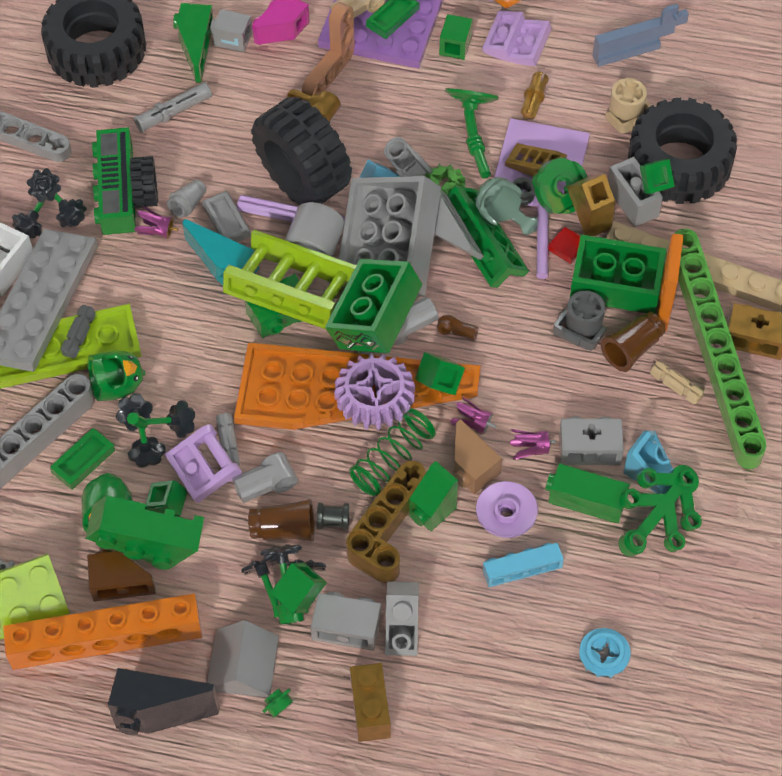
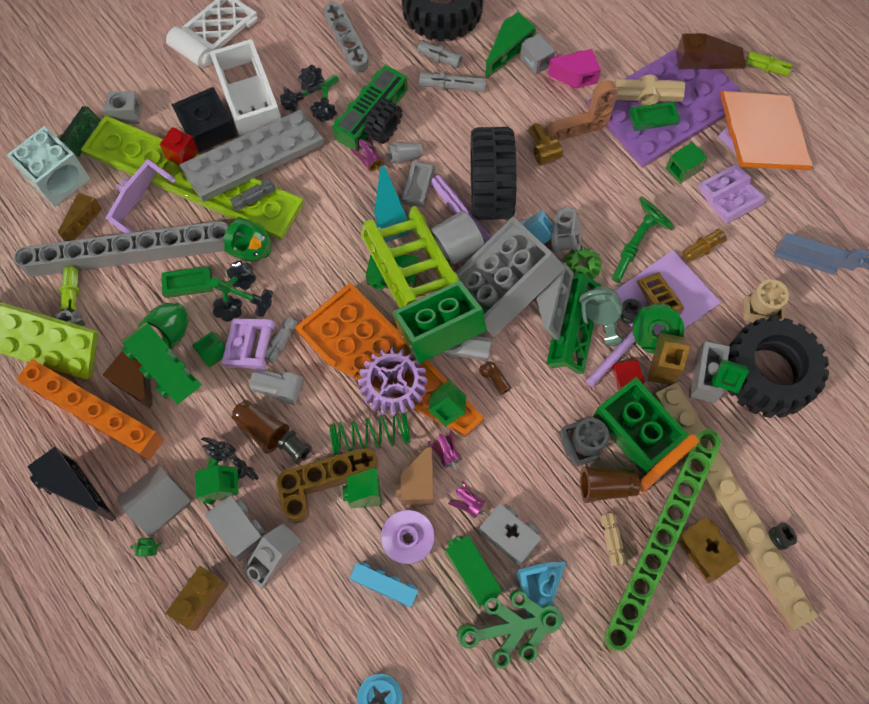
camera: 40 degrees right, 10 degrees up
(154, 86) = (426, 49): none -> light grey pin

